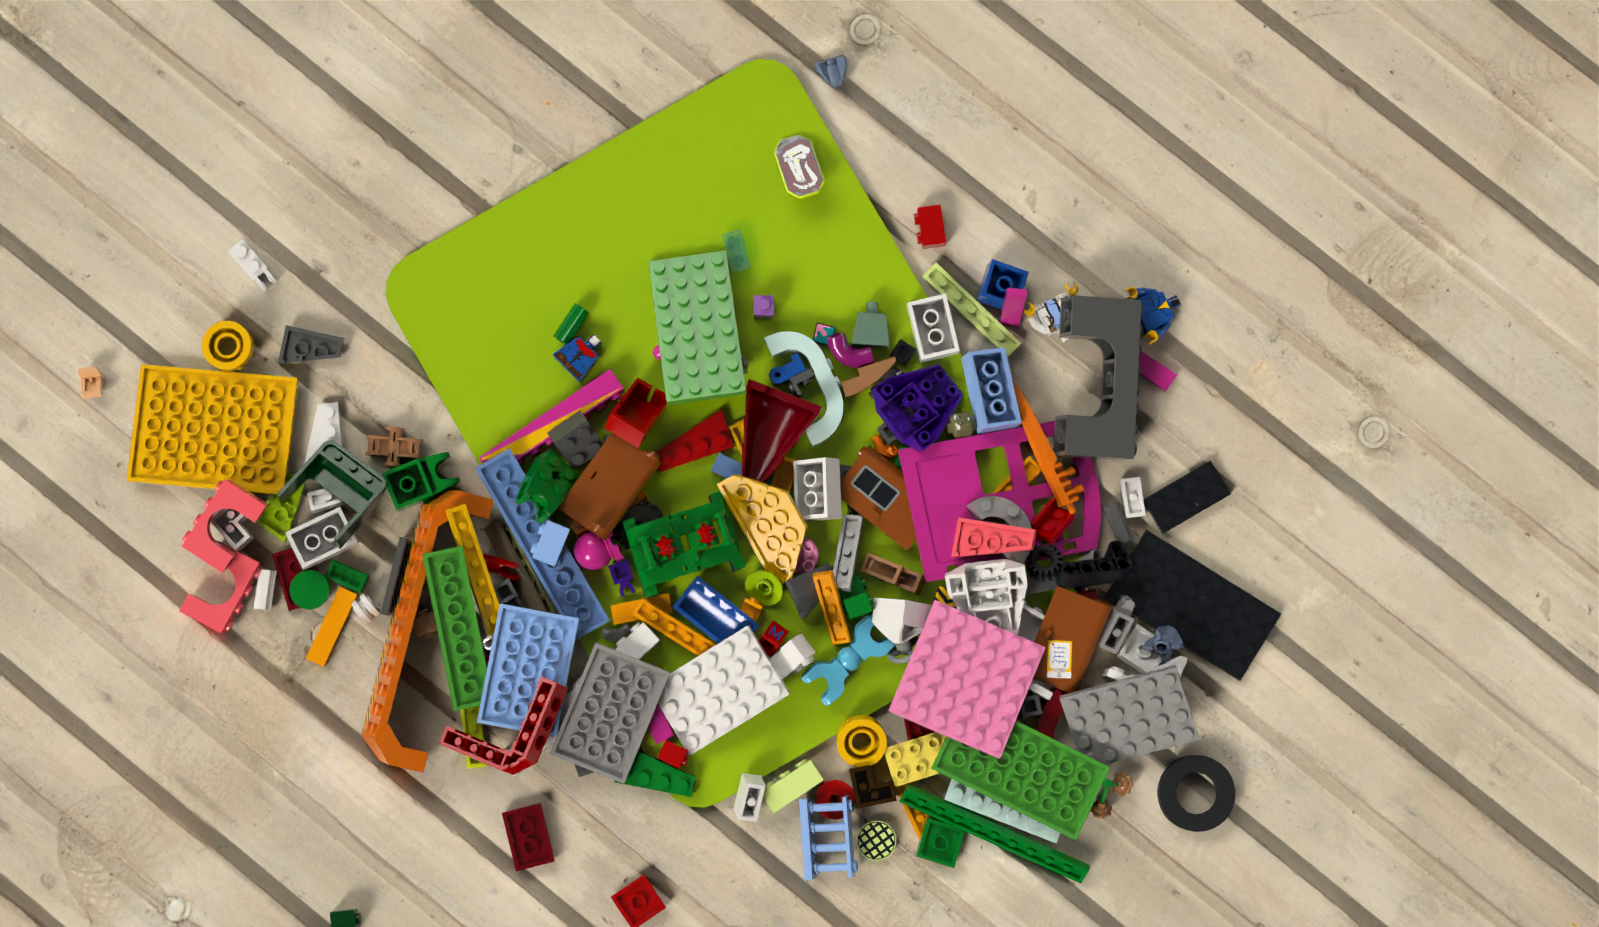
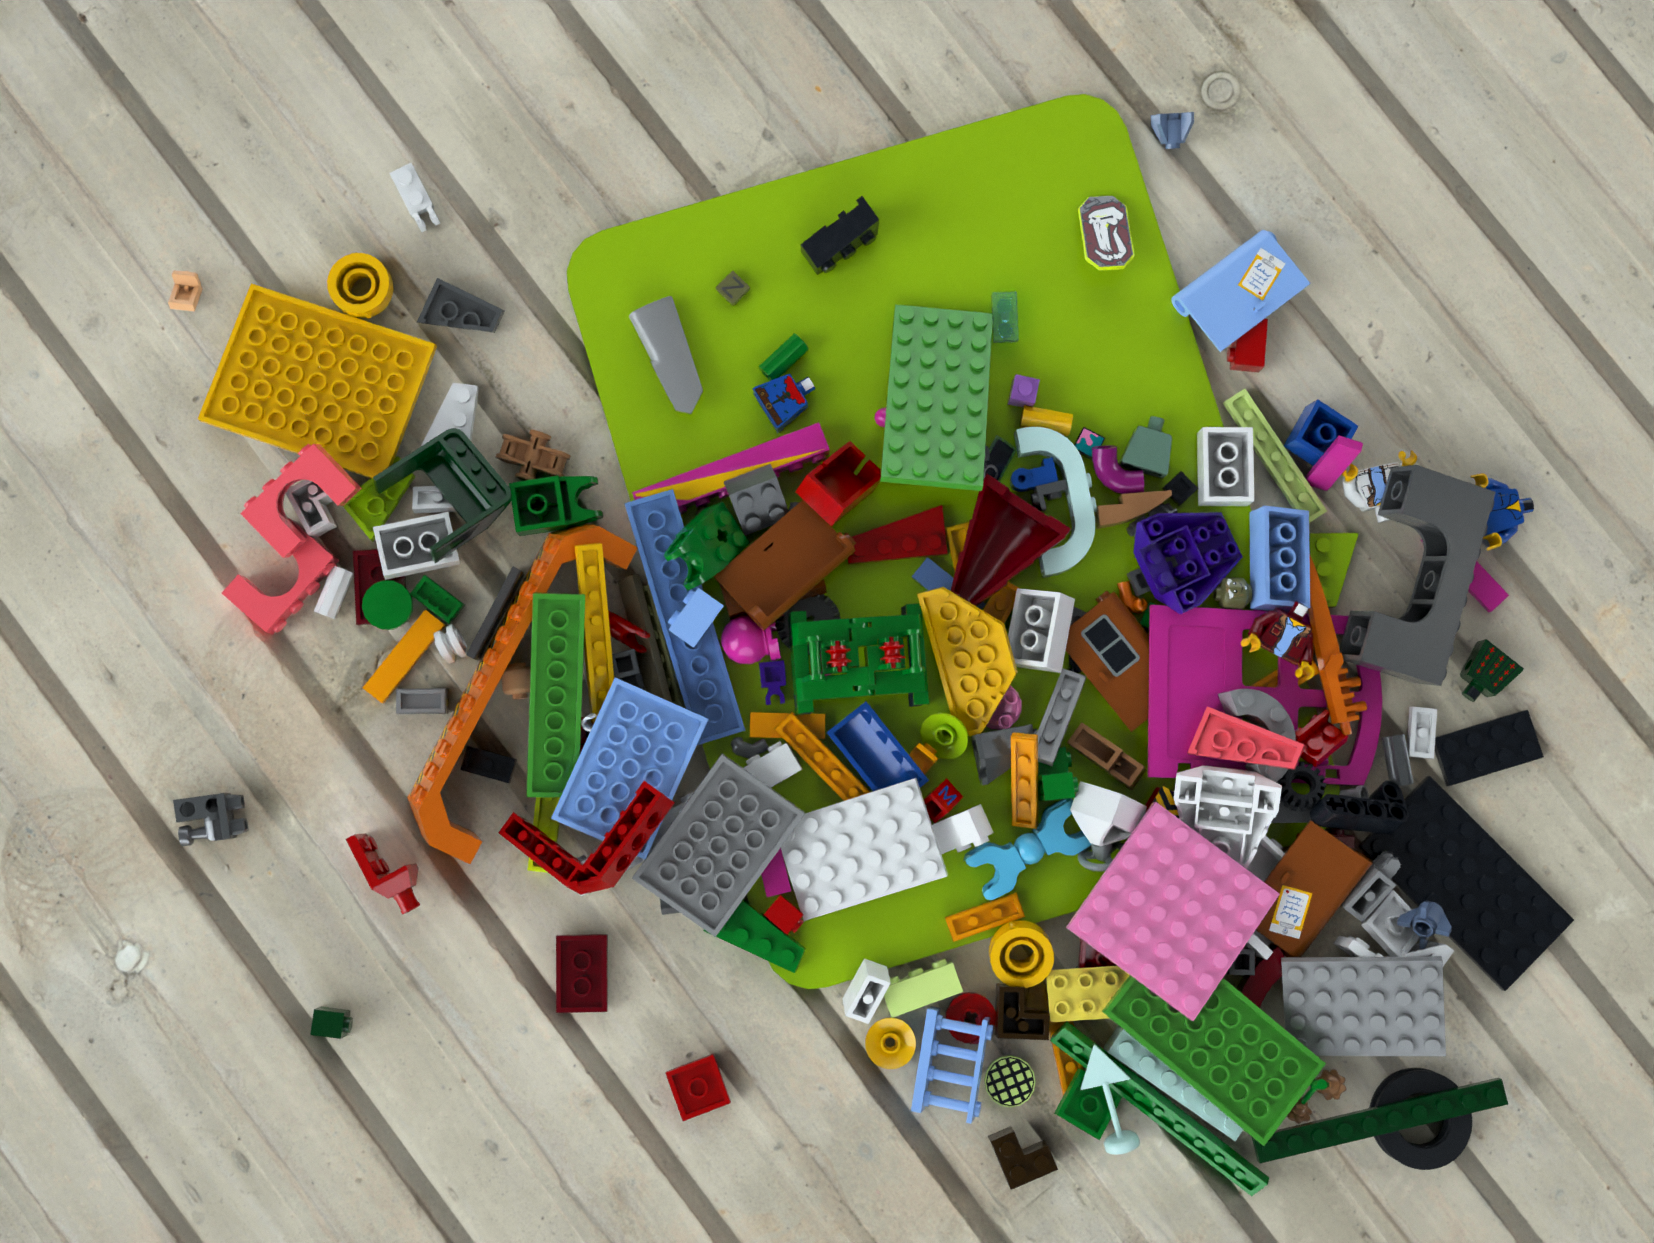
camera: 10 degrees right, 0 degrees up
(217, 782) = (217, 816): none -> dark grey hips
(354, 657) = (422, 701): none -> light grey tile
(368, 803) = (392, 885): none -> red plate
(417, 694) = (488, 764): none -> black plate
(481, 341) = (669, 352): none -> light grey panel
(518, 278) = (732, 288): none -> olive tile
(593, 220) = (841, 237): none -> black wedge
(757, 362) = (1000, 457): none -> black slope
(770, 841) = (893, 1056): none -> yellow dish
(787, 323) = (1046, 418): none -> yellow axle
(827, 719) = (984, 916): none -> light orange tile
(897, 901) = (1021, 1164): none -> dark brown brick
(919, 176) = (1248, 278): none -> light blue door
(944, 814) = (1102, 1072): none -> light aqua piece
(1005, 449) = (1284, 636): none -> torso
(1032, 380) = (1331, 558): none -> lime wing
(1164, 800) = (1382, 1119): none -> dark green plate
(1173, 438) = (1488, 671): none -> dark green torso

